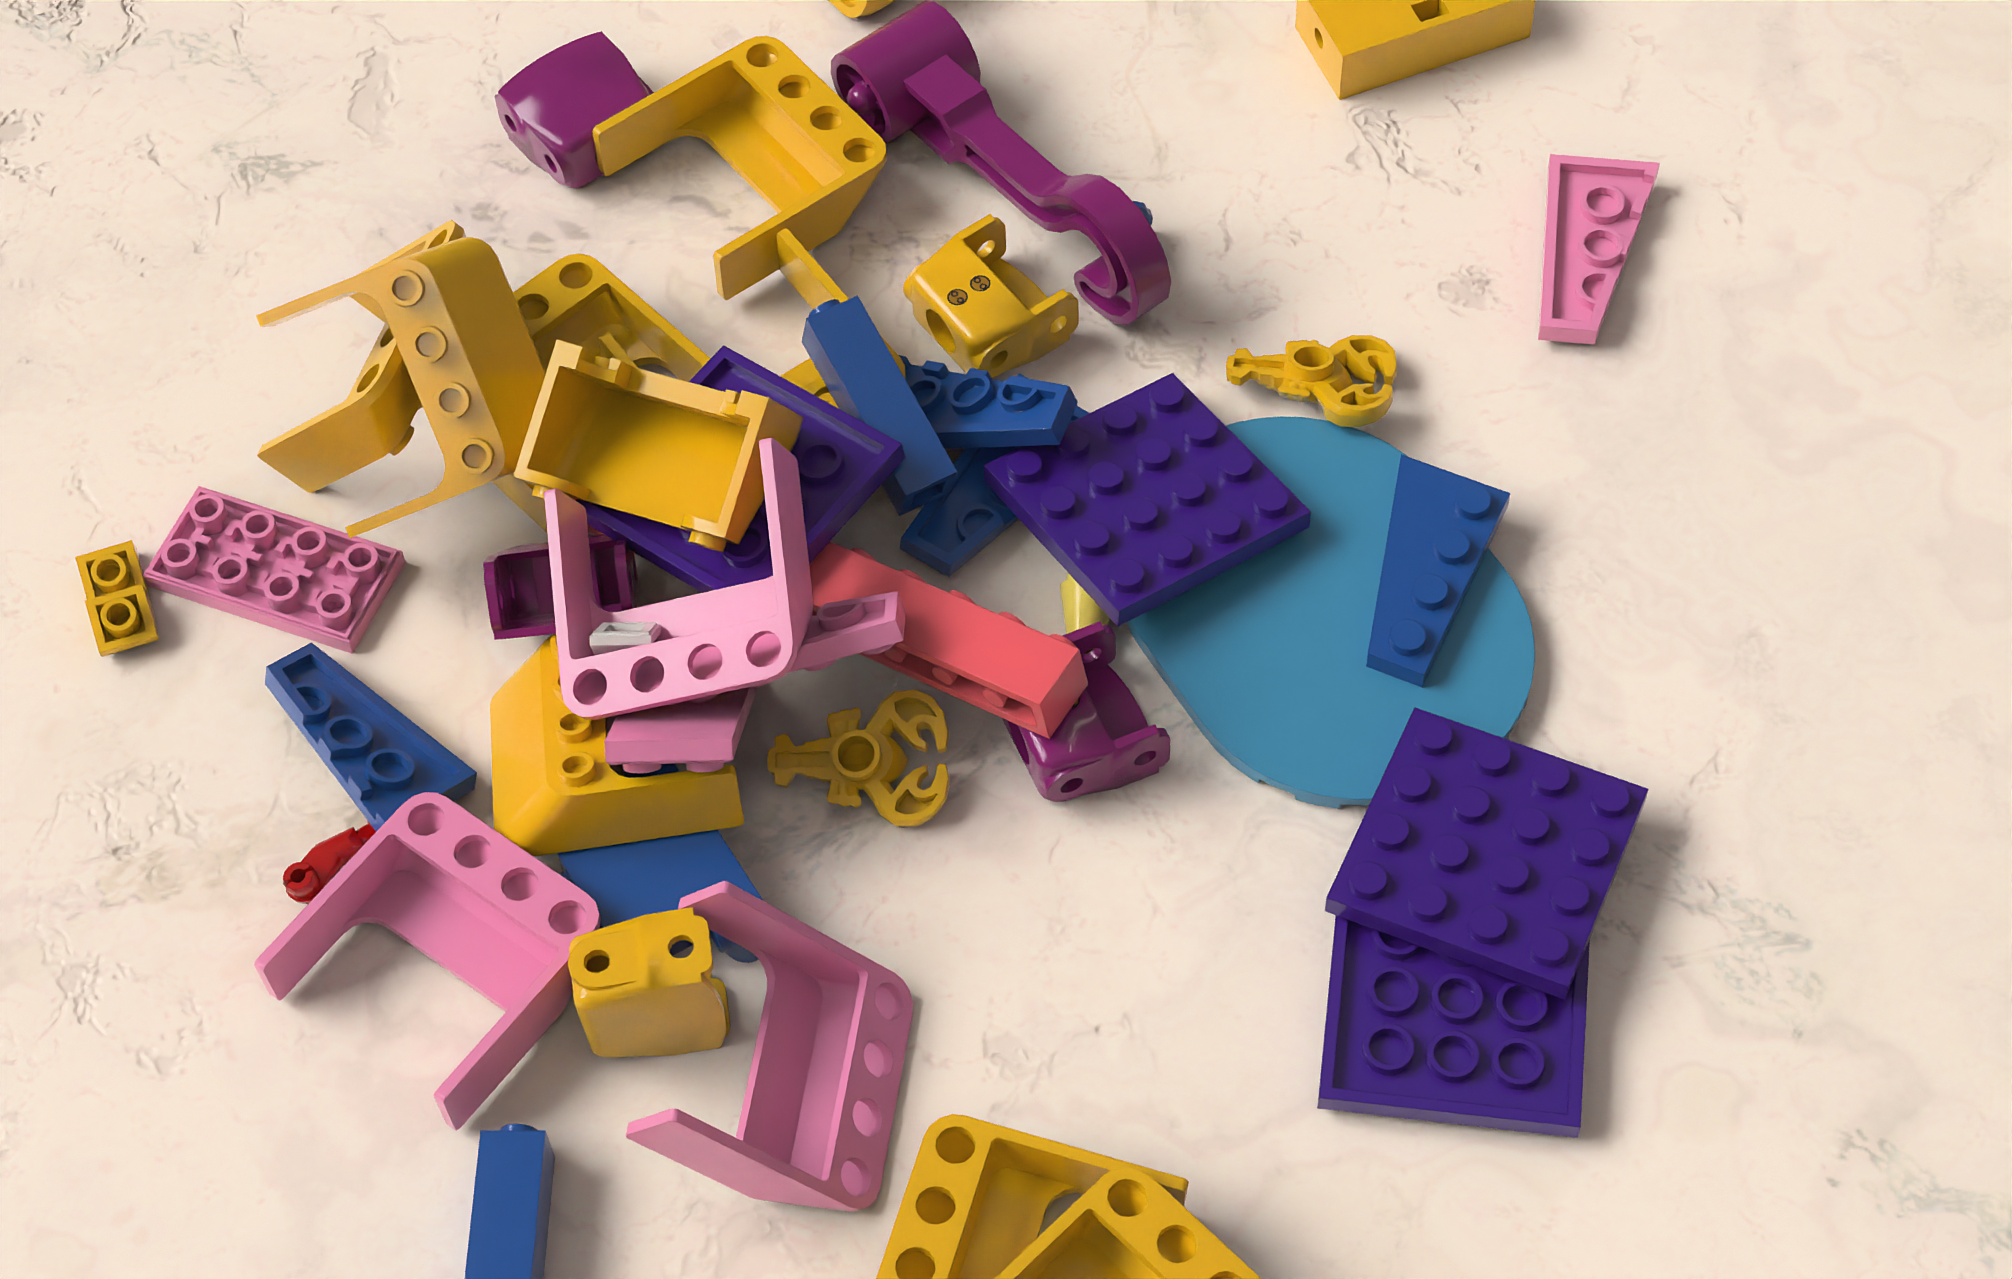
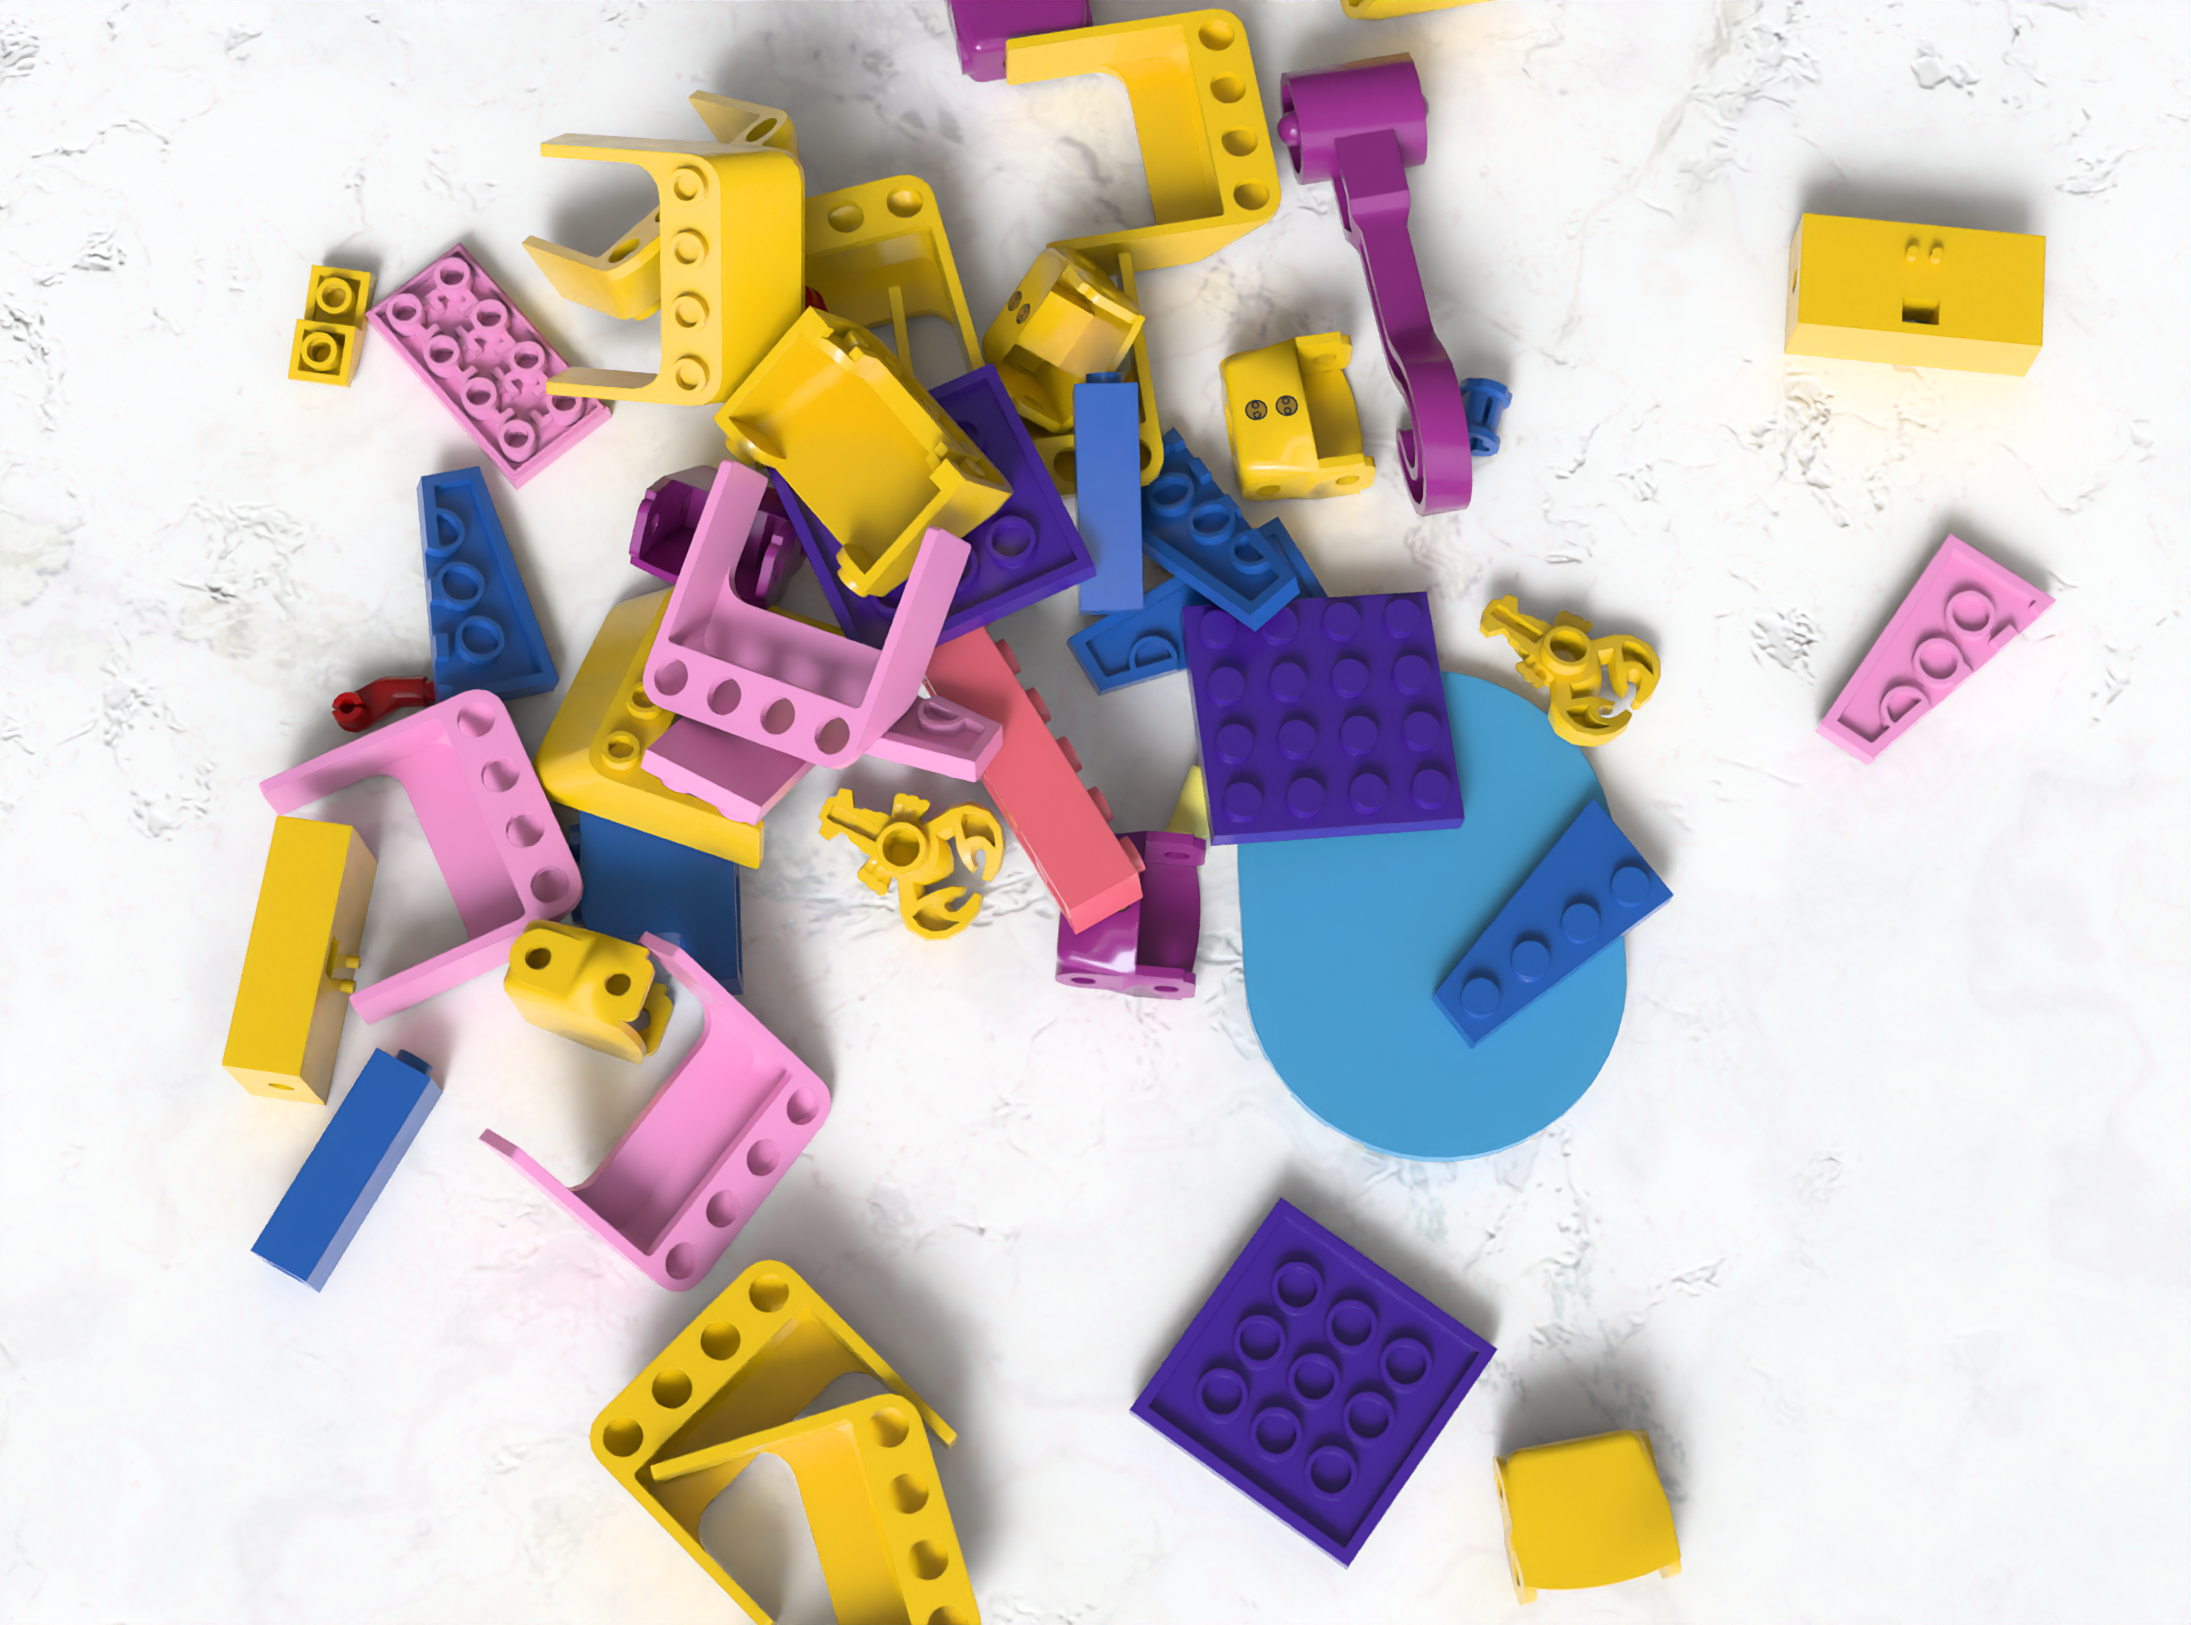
camera: 25 degrees right, 15 degrees up
(371, 1095) = (300, 961): none -> yellow brick
(623, 635) = (730, 639): white slope -> none
(761, 304) = (1055, 331): none -> yellow piece
(1487, 852) = (1426, 1254): dark purple plate -> none
(1744, 983) = (1584, 1513): none -> yellow piece

